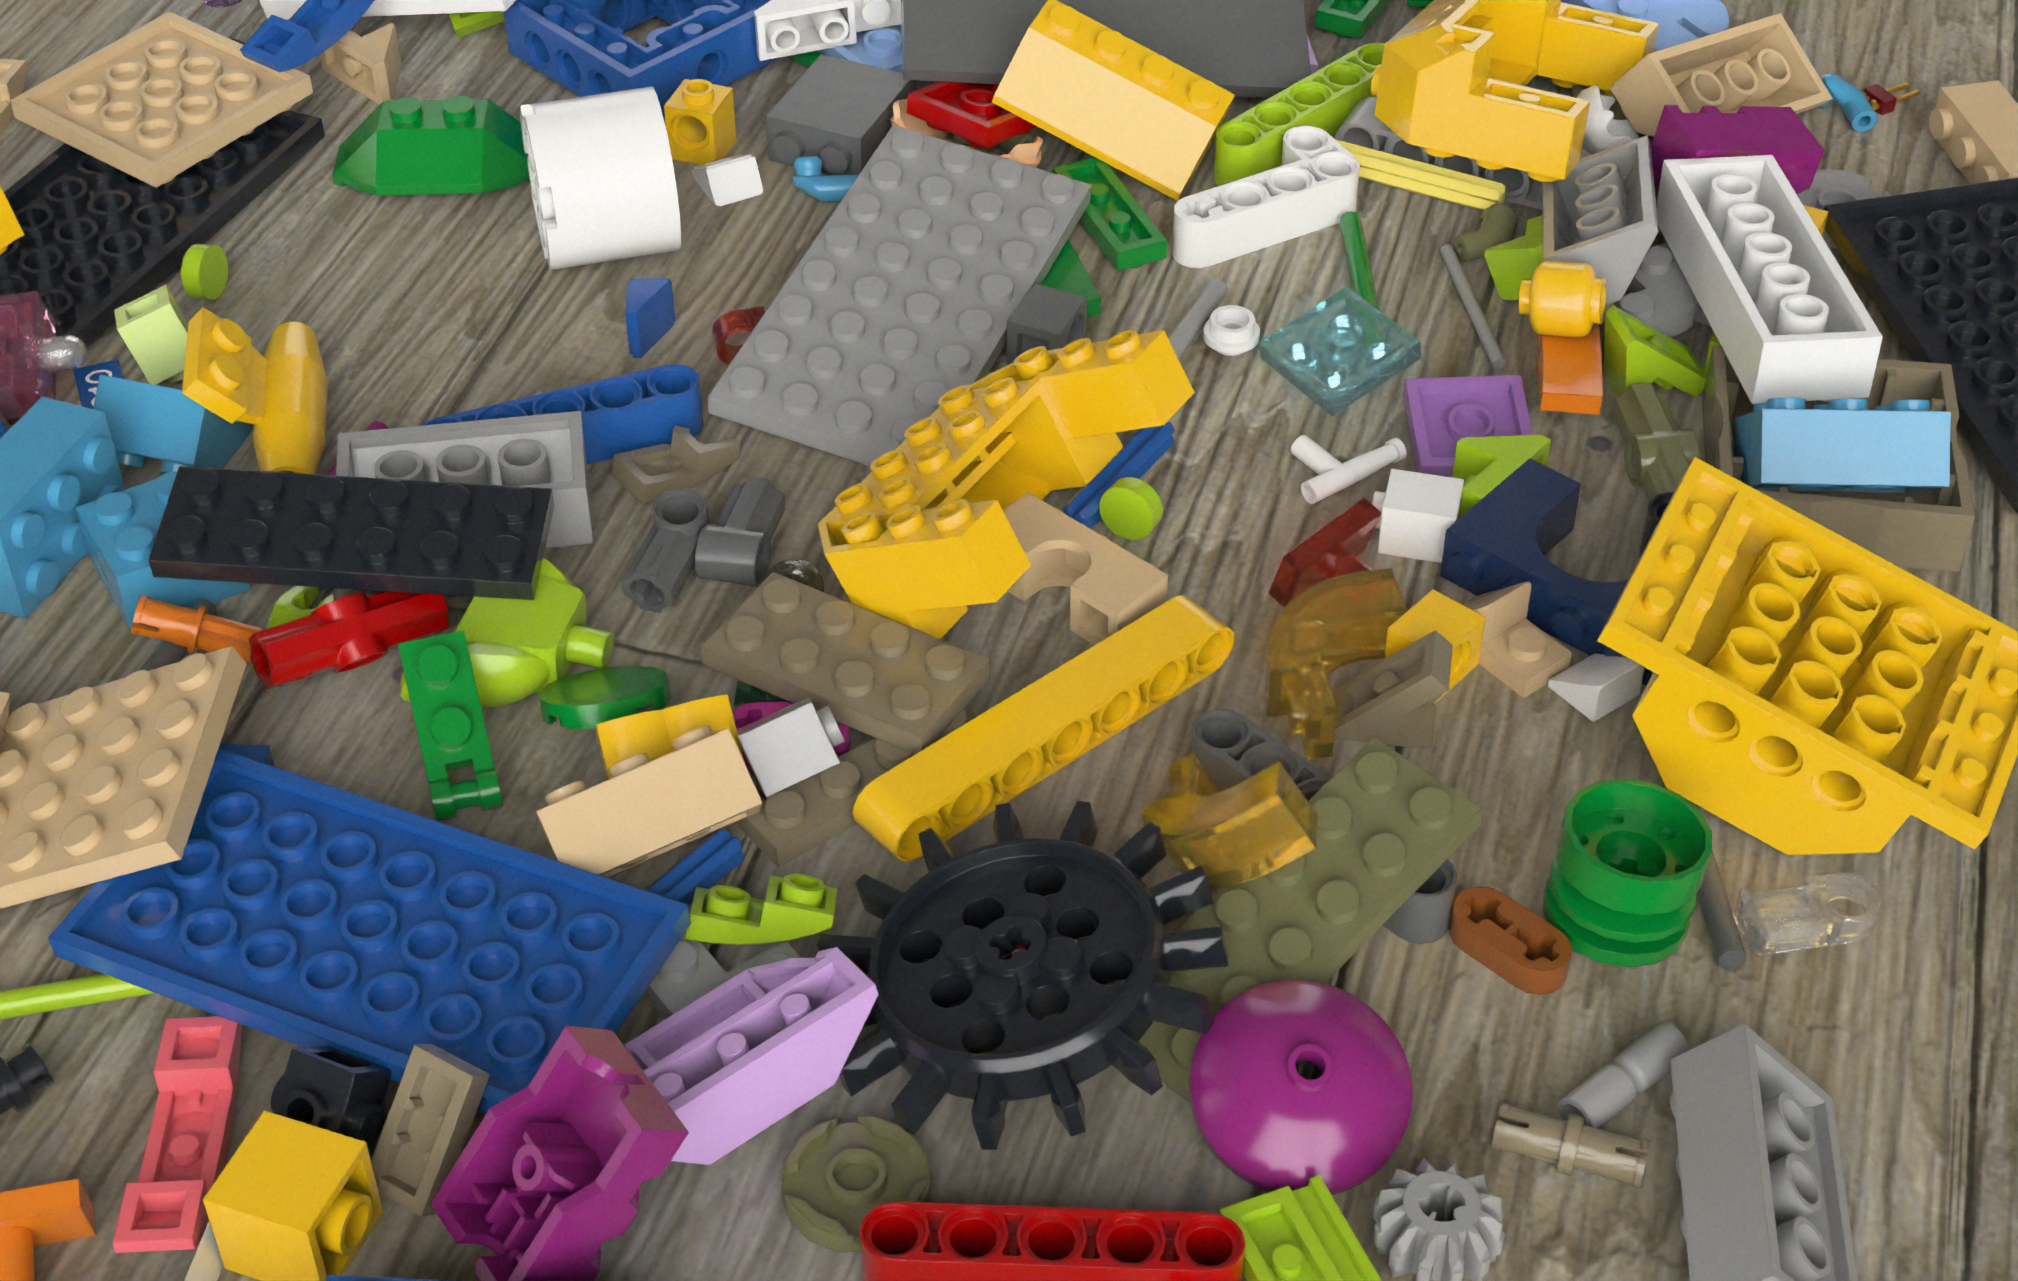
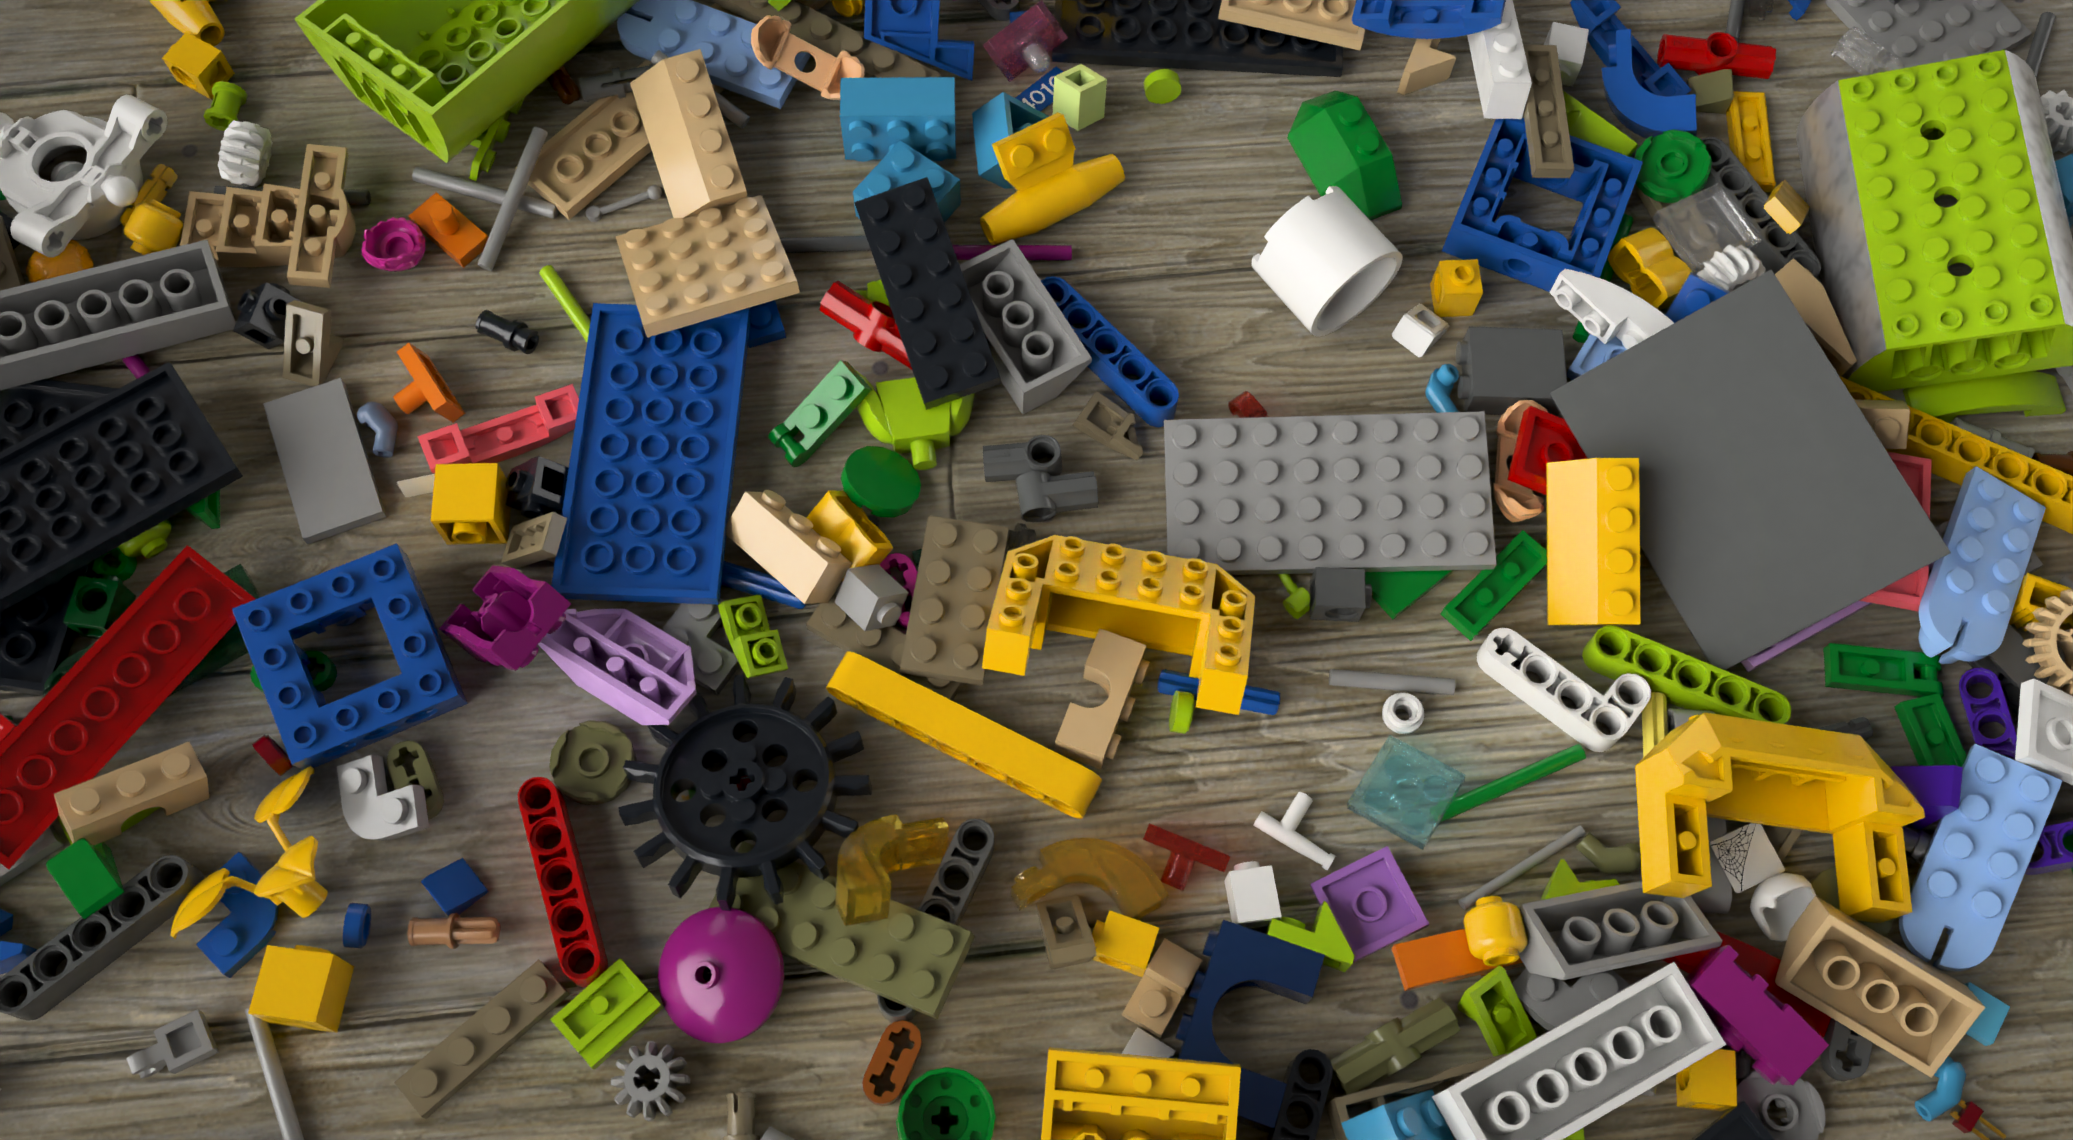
camera: 65 degrees right, 25 degrees up
(191, 627) = (851, 249): orange axle -> none
(648, 313) = (1238, 347): blue slope -> none

